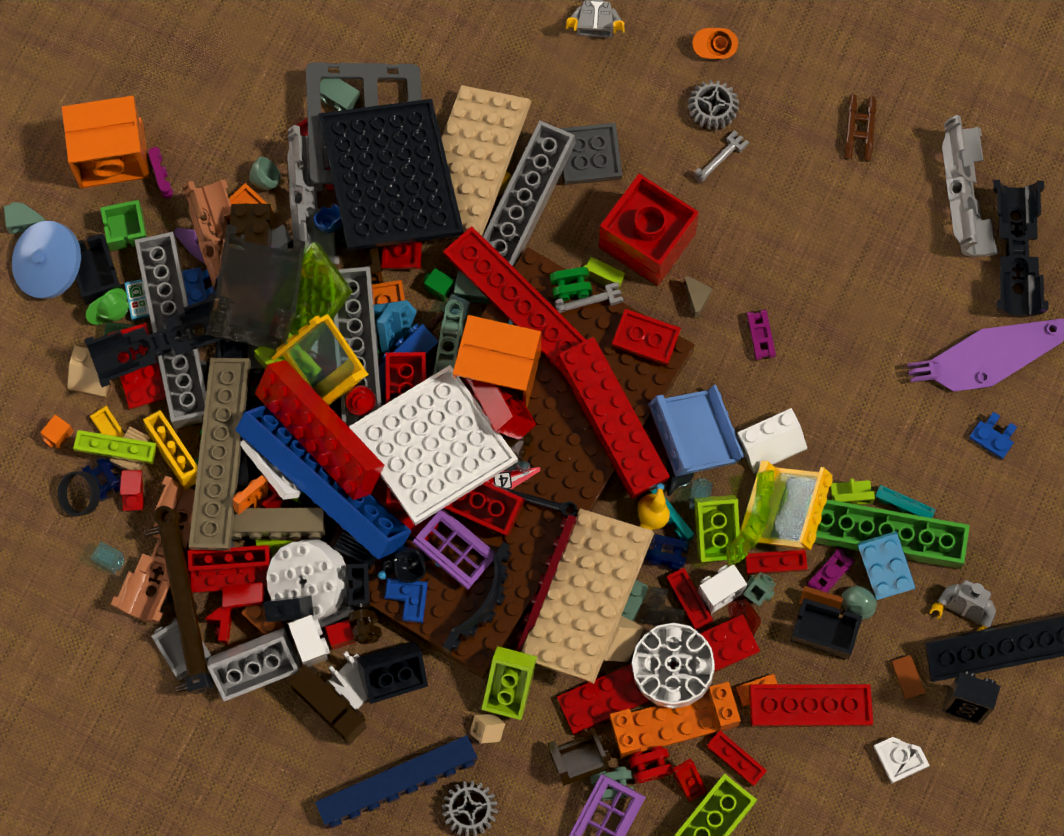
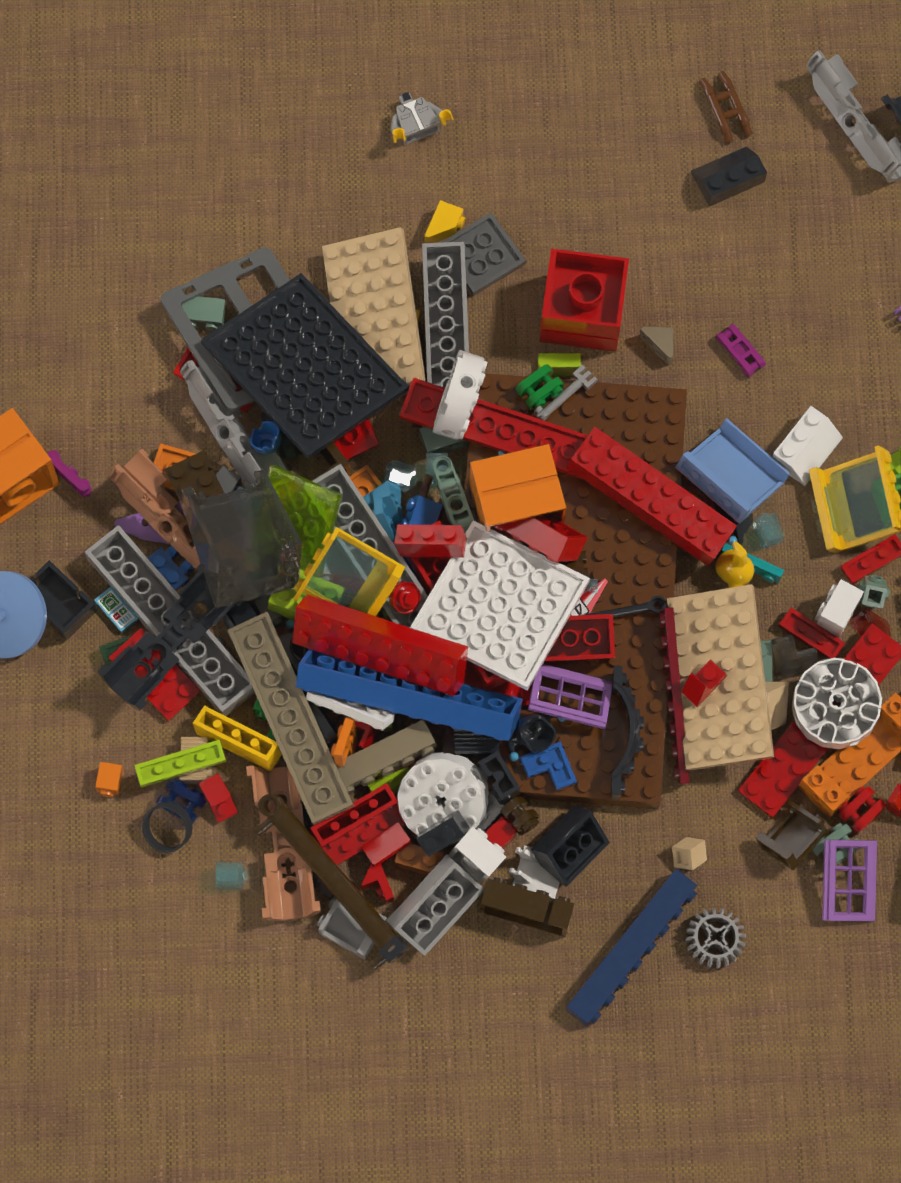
camera: 30 degrees left, 0 degrees up
(83, 375) = (106, 707): tan slope -> none
(107, 423) = (154, 746): yellow tile -> none
(108, 307) = (94, 630): bright green piece -> none
(125, 224) = (63, 541): bright green piece -> none
(264, 174) = (175, 426): sand green hat -> none
(404, 364) = (430, 540): none -> red brick
(422, 302) = (401, 475): none -> clear light blue brick
(439, 284) = (406, 450): green brick -> none
(493, 256) = (460, 395): none -> white brick
(509, 683) = (690, 798): lime brick -> none
(567, 593) = (702, 684): none -> red slope
(572, 113) = (444, 222): none -> yellow slope
(646, 337) = (639, 404): red plate -> none
(673, 561) = (777, 605): clear blue brick -> none
(696, 101) = (589, 144): light grey gear -> none
(701, 175) = (601, 223): light grey hinge -> none
(715, 43) = (546, 89): orange piece -> none
(715, 526) = (804, 553): lime brick -> none
(758, 519) = (837, 529): clear neon green tile -> none
(831, 186) = (729, 175): none -> black slope

